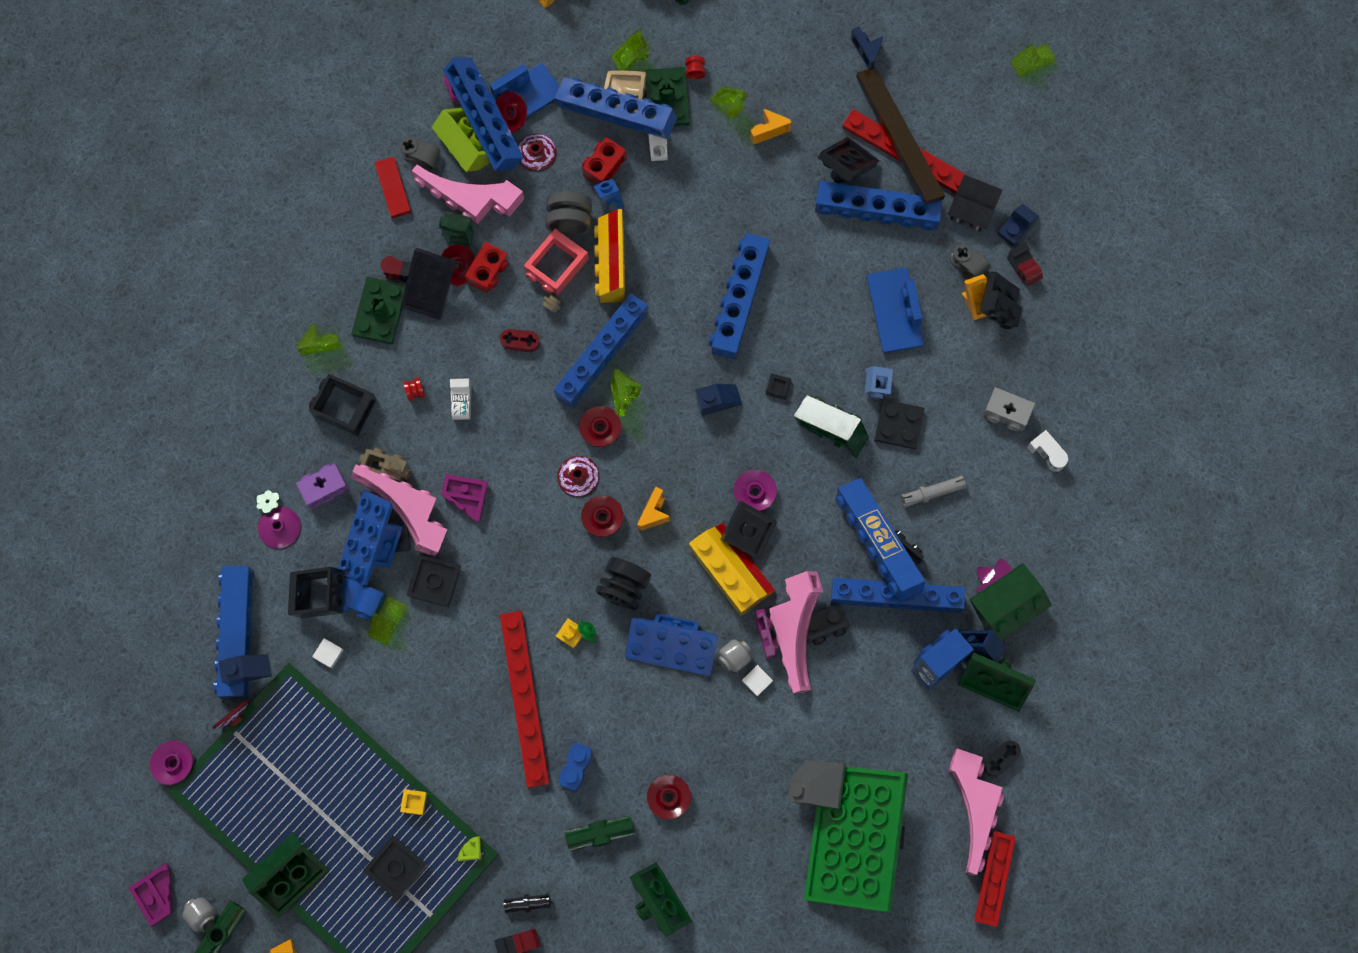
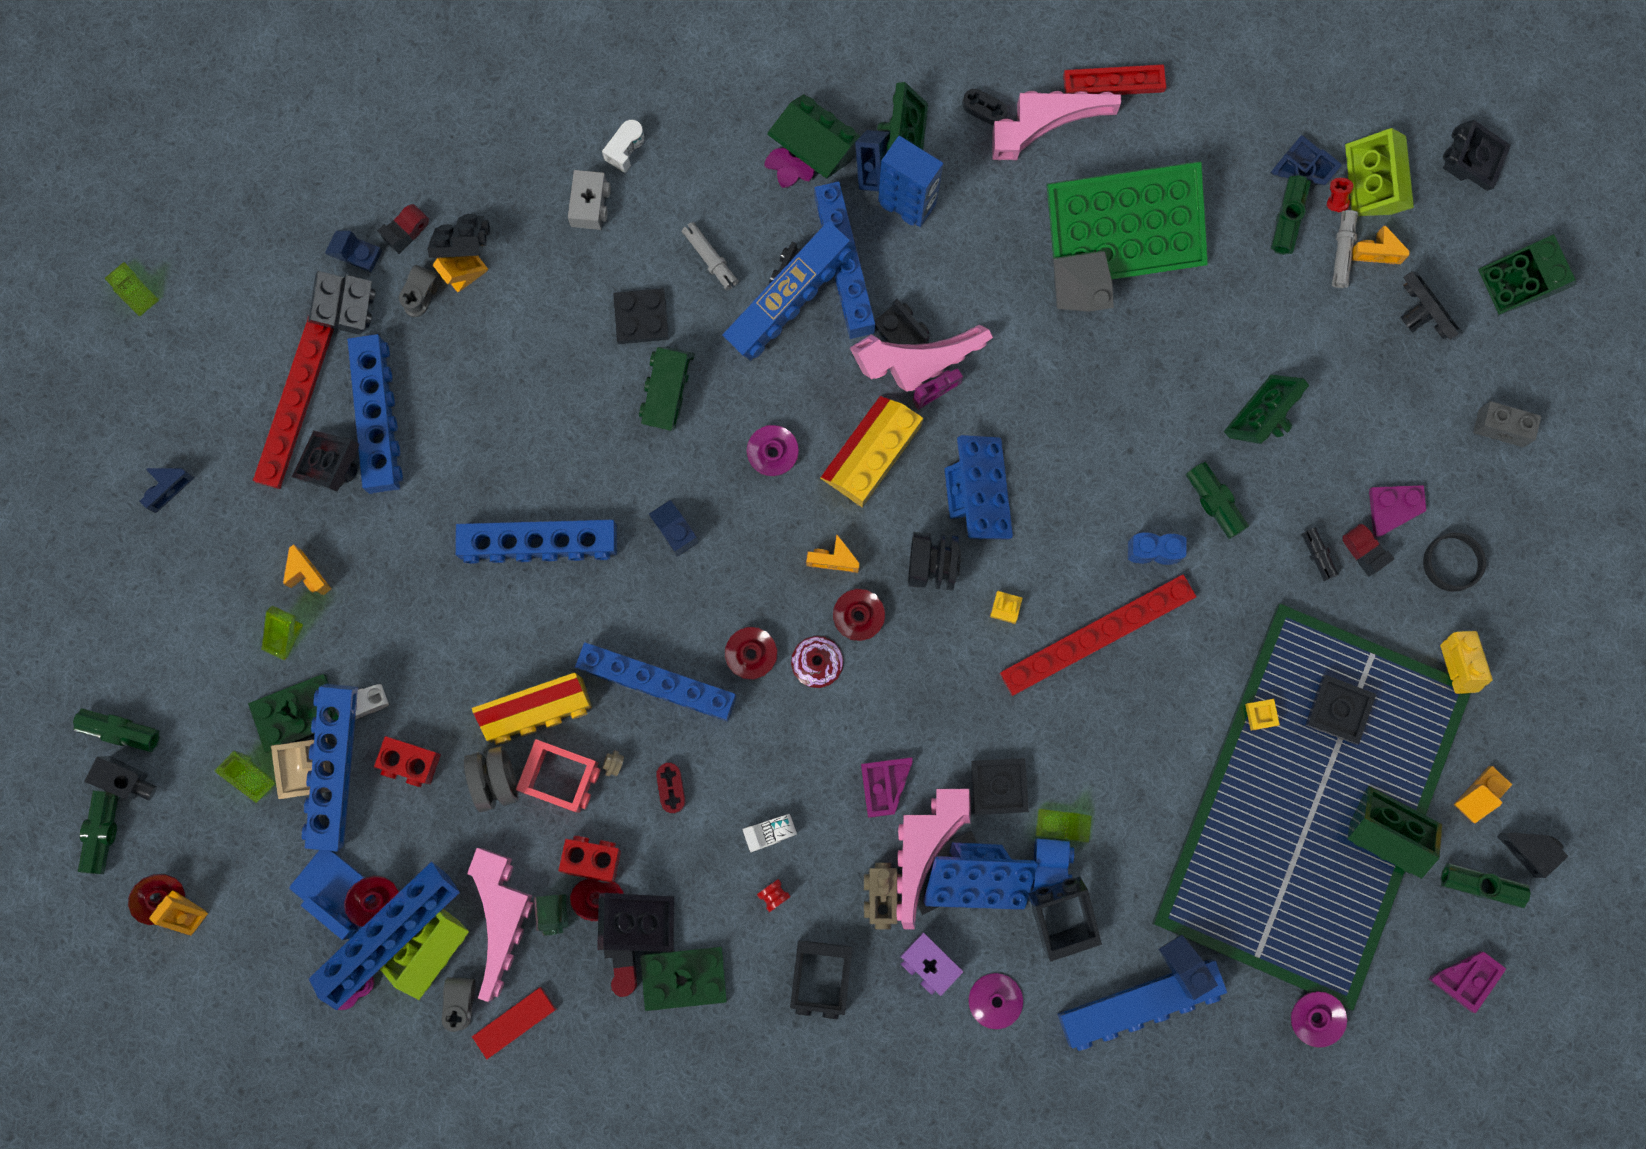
camera: 110 degrees left, 5 degrees up
(199, 914) = (1471, 917): light grey head -> none
(233, 717) = (1242, 967): dark red dish -> none
(267, 501) = (970, 1034): plant -> none
(313, 343) = (753, 1047): clear neon green slope -> none
(328, 653) = (1125, 882): white tile -> none
(471, 850) = (1289, 633): lime tile -> none
(540, 159) = (423, 843): dish -> none
(587, 630) = (998, 587): green plant -> none
(609, 196) = (452, 738): blue bracket -> none
(623, 391) = (697, 642): clear neon green slope -> none
(665, 785) = (1157, 427): dark red dish -> none
(695, 67) = (246, 689): red wheel -> none
(734, 655) = (971, 414): light grey head -> none
(748, 530) = (823, 442): black plate -> none
(757, 680) = (989, 384): white tile -> none
(778, 386) = (636, 464): black tile -> none
(883, 377) = (598, 350): medium blue brick -> none
(896, 309) = (500, 357): blue bracket -> none
(900, 136) = (275, 412): dark brown tile -> none

